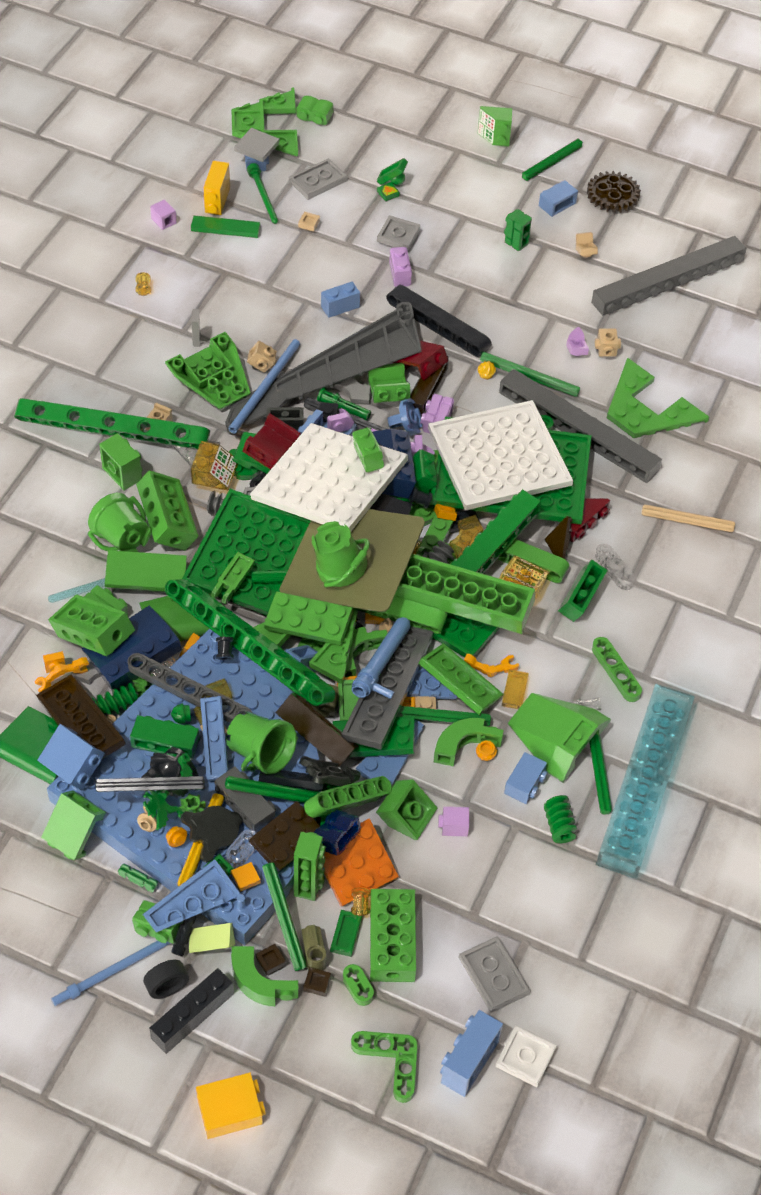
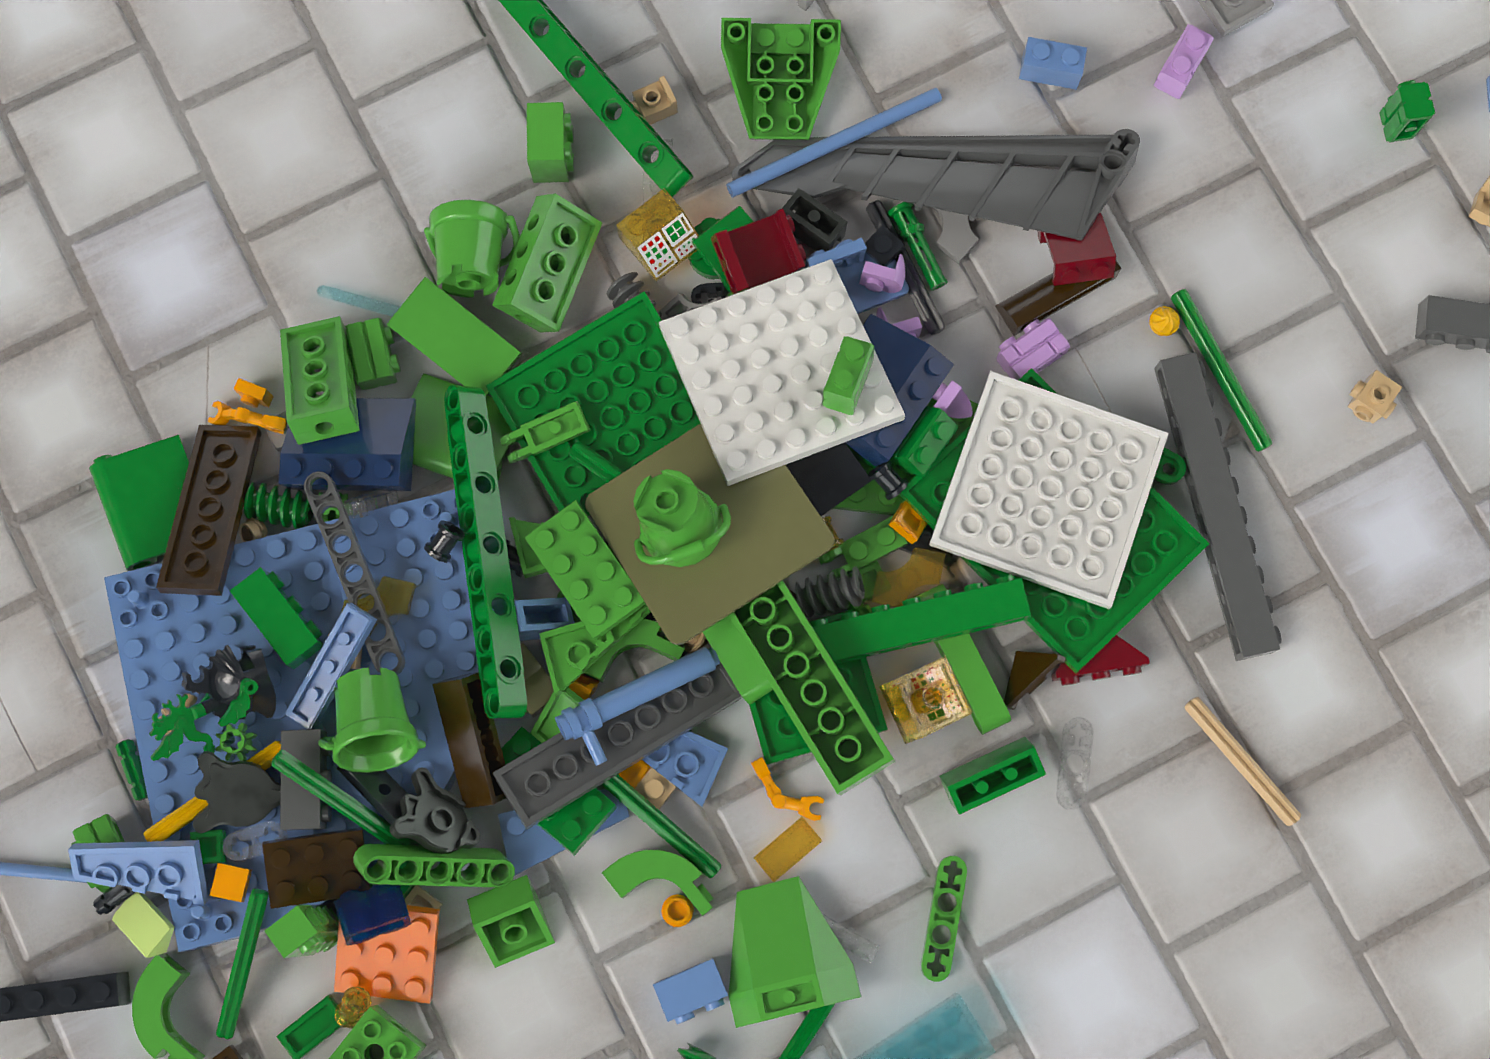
camera: 40 degrees right, 25 degrees up
(71, 757) = (140, 566): medium blue panel -> none
(71, 824) = (97, 651): panel -> none
(150, 784) = (178, 696): axle -> none
(166, 979) = (54, 938): black tyre -> none
(176, 836) = (187, 768): light orange plate -> none
(181, 713) = (324, 597): green plate -> none
(192, 640) = (430, 487): light orange plate -> none
(262, 356) = (865, 92): tan brick -> none
(270, 959) = (197, 997): dark brown plate -> none
(314, 947) = (257, 1020): olive piece -> none
(389, 383) = (1003, 258): bright green panel -> none
(408, 417) = (982, 331): medium blue tile -> none
(441, 321) = (1165, 193): black beam -> none
(454, 821) = (553, 982): lavender brick -> none
(461, 678) = (723, 789): bright green tile -> none
(576, 343) = (1329, 367): lavender plate -> none
(637, 418) = (1312, 544): bright green wing -> none

